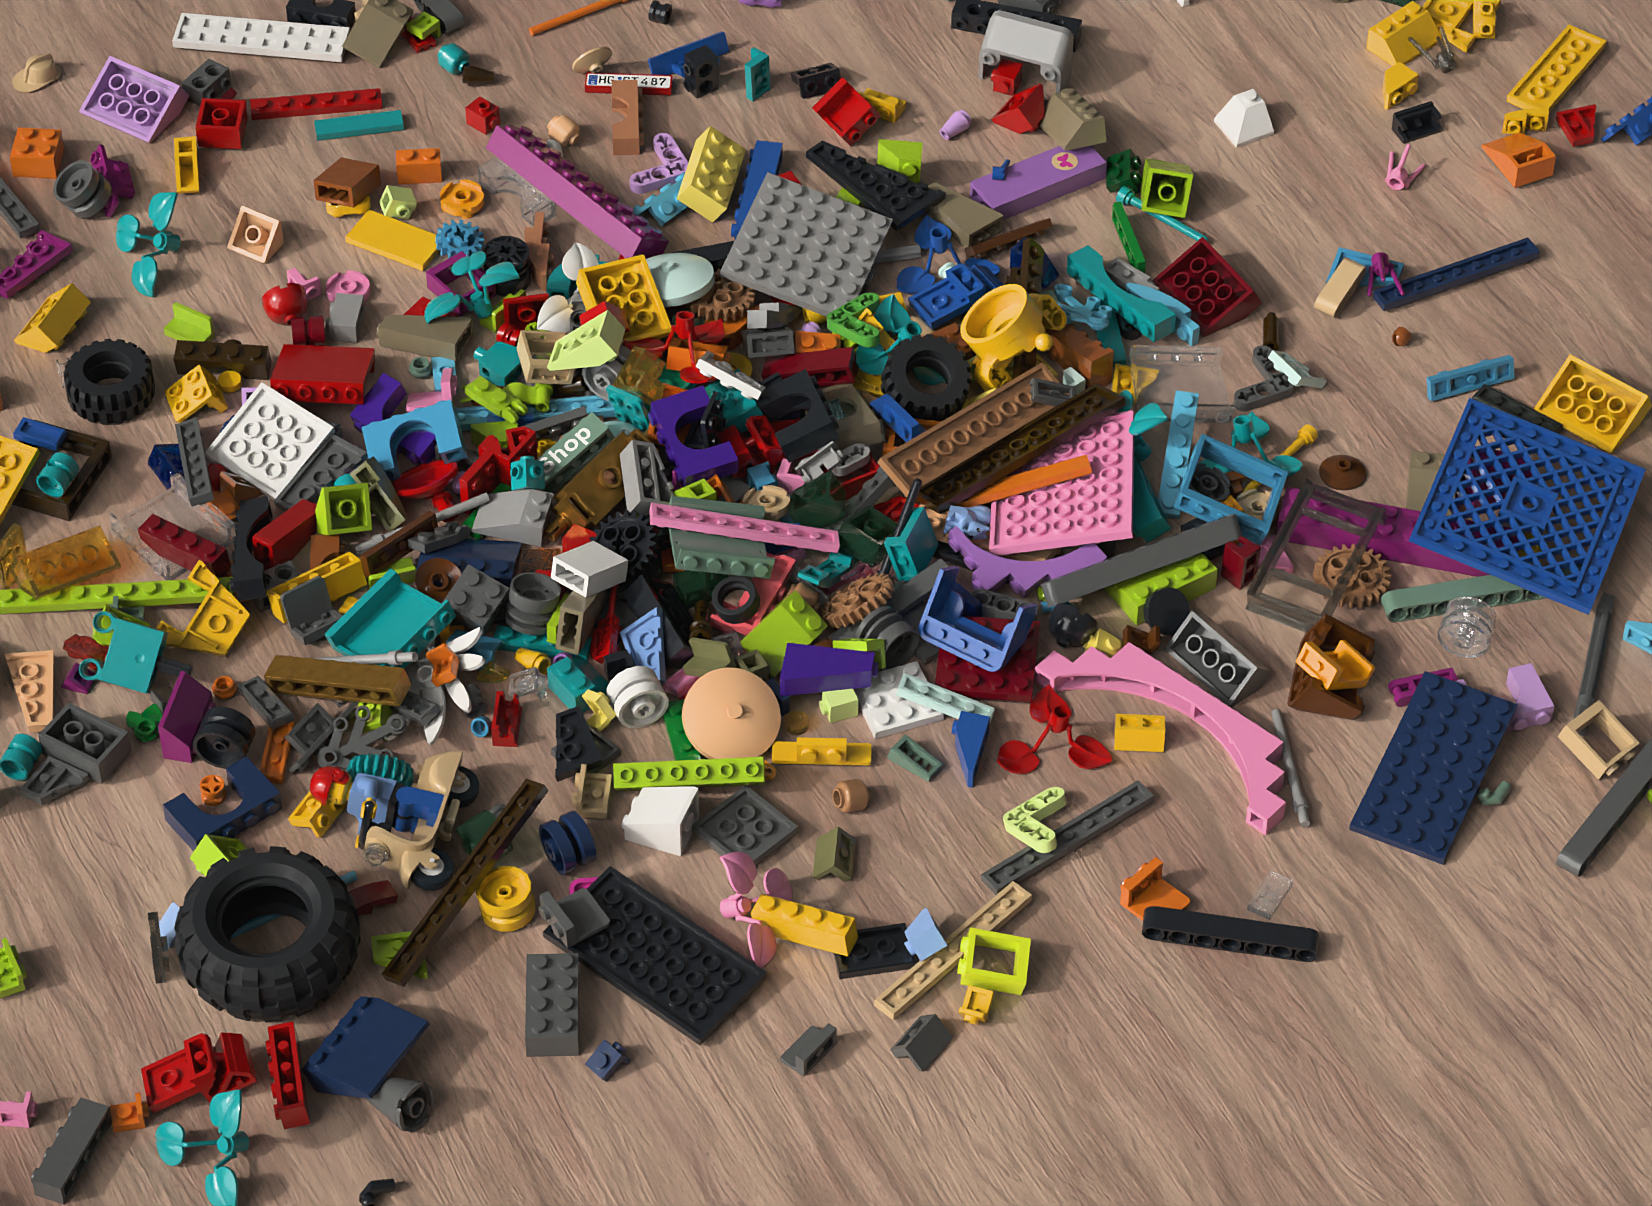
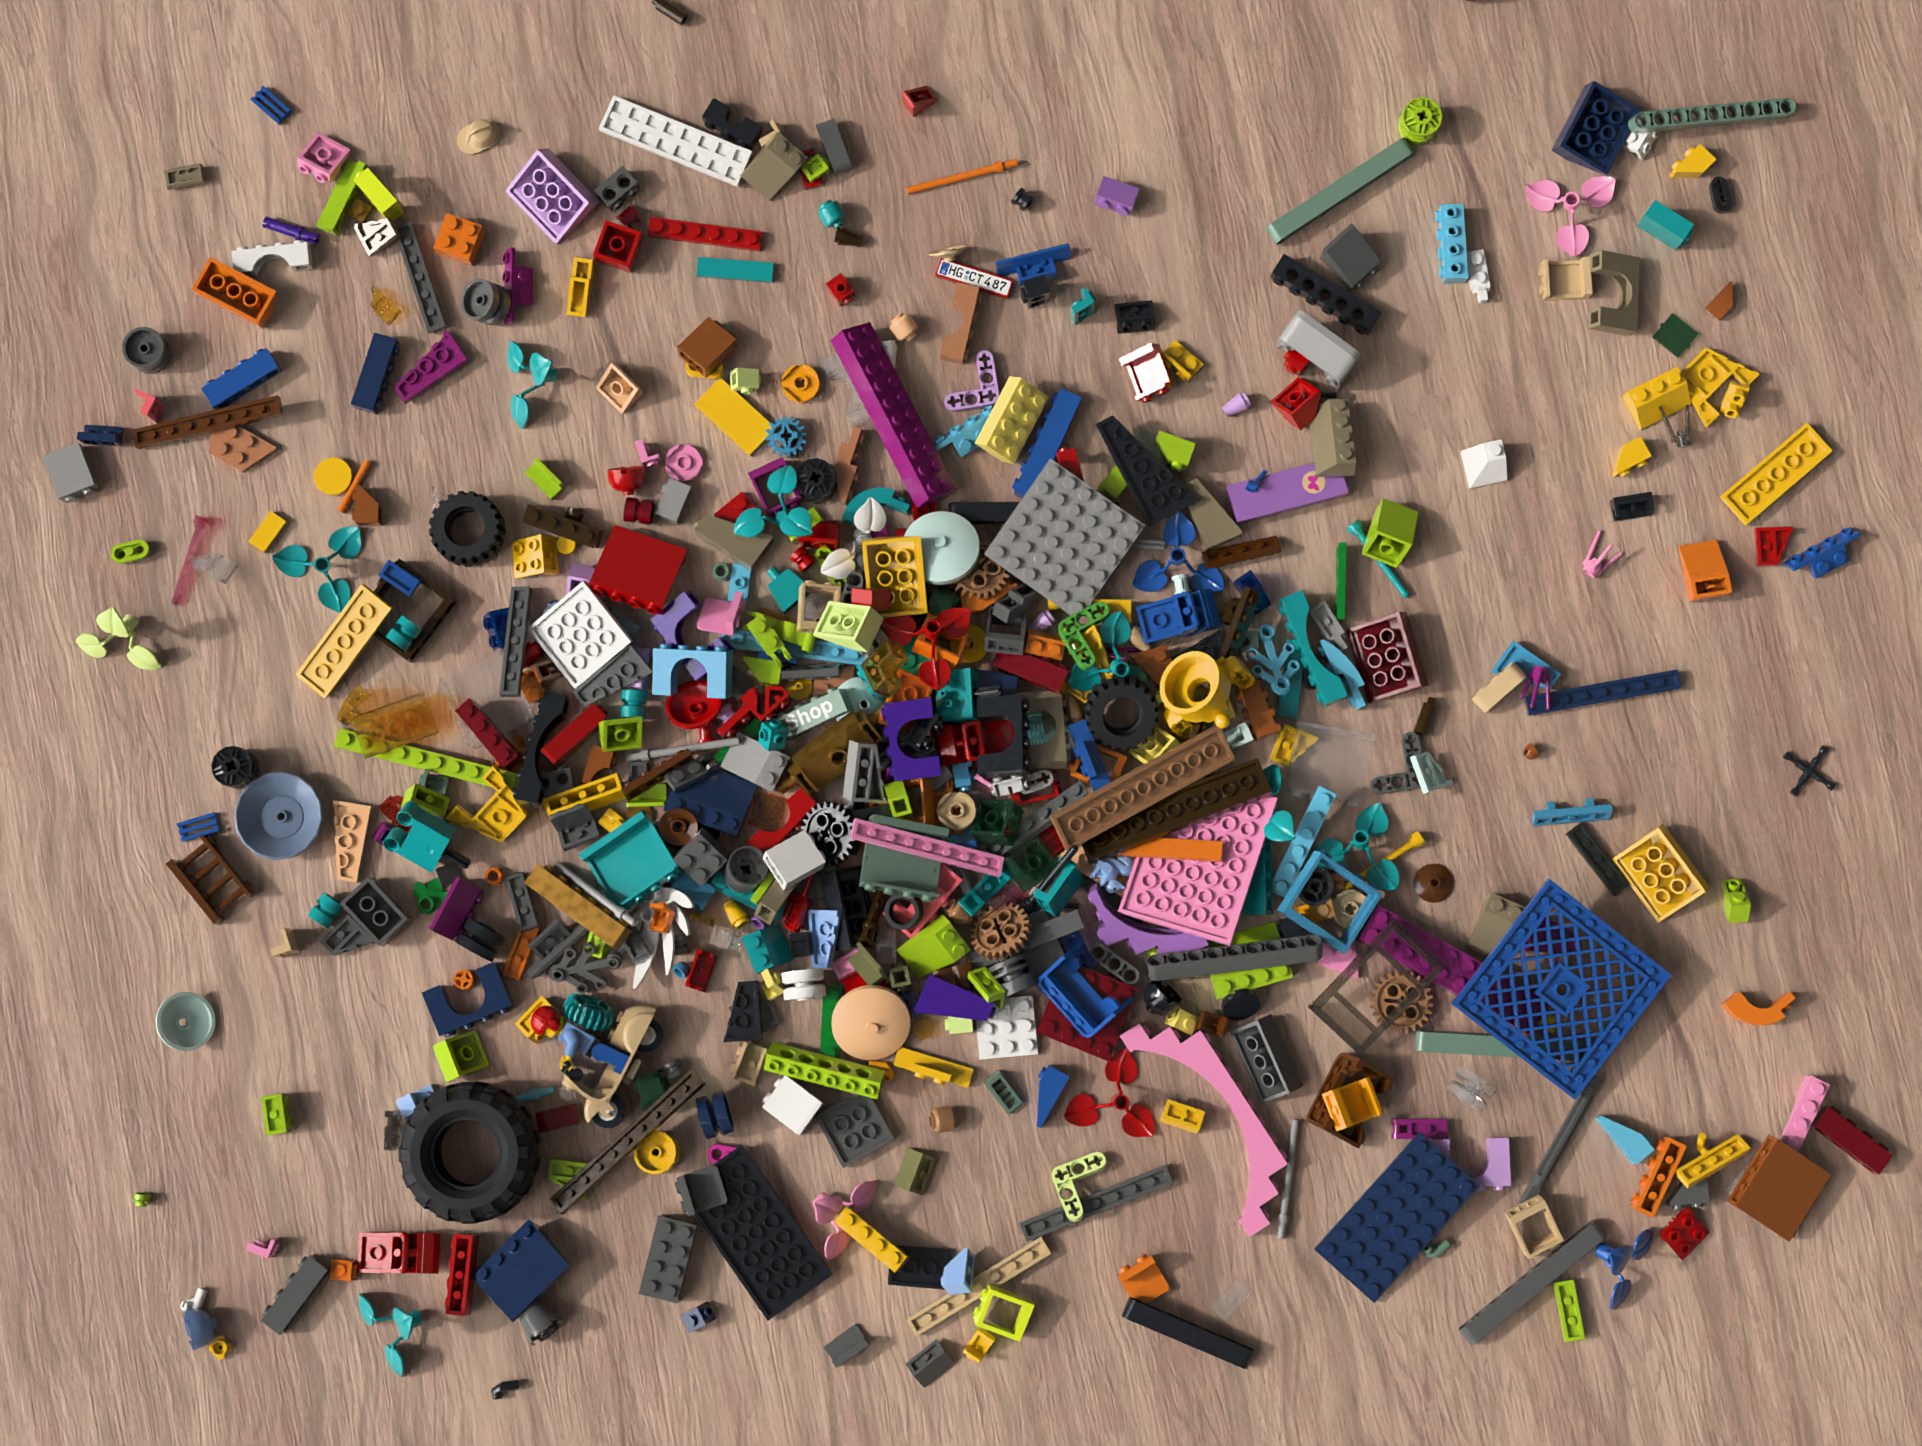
camera: 20 degrees right, 35 degrees up
(54, 320) = (436, 441): yellow slope -> none
(382, 495) = (654, 714): olive slope -> none
(418, 166) = (772, 339): orange brick -> none
(729, 379) = (951, 683): white wing -> none
(940, 698) = (1041, 1047): light aqua tile -> none
(1053, 396) = (1204, 756): dark grey tile -> none
(1123, 170) = (1362, 499): dark green bracket -> none
(1240, 563) = (1316, 973): dark red hinge -> none
(1525, 119) = (1718, 530): yellow slope -> none

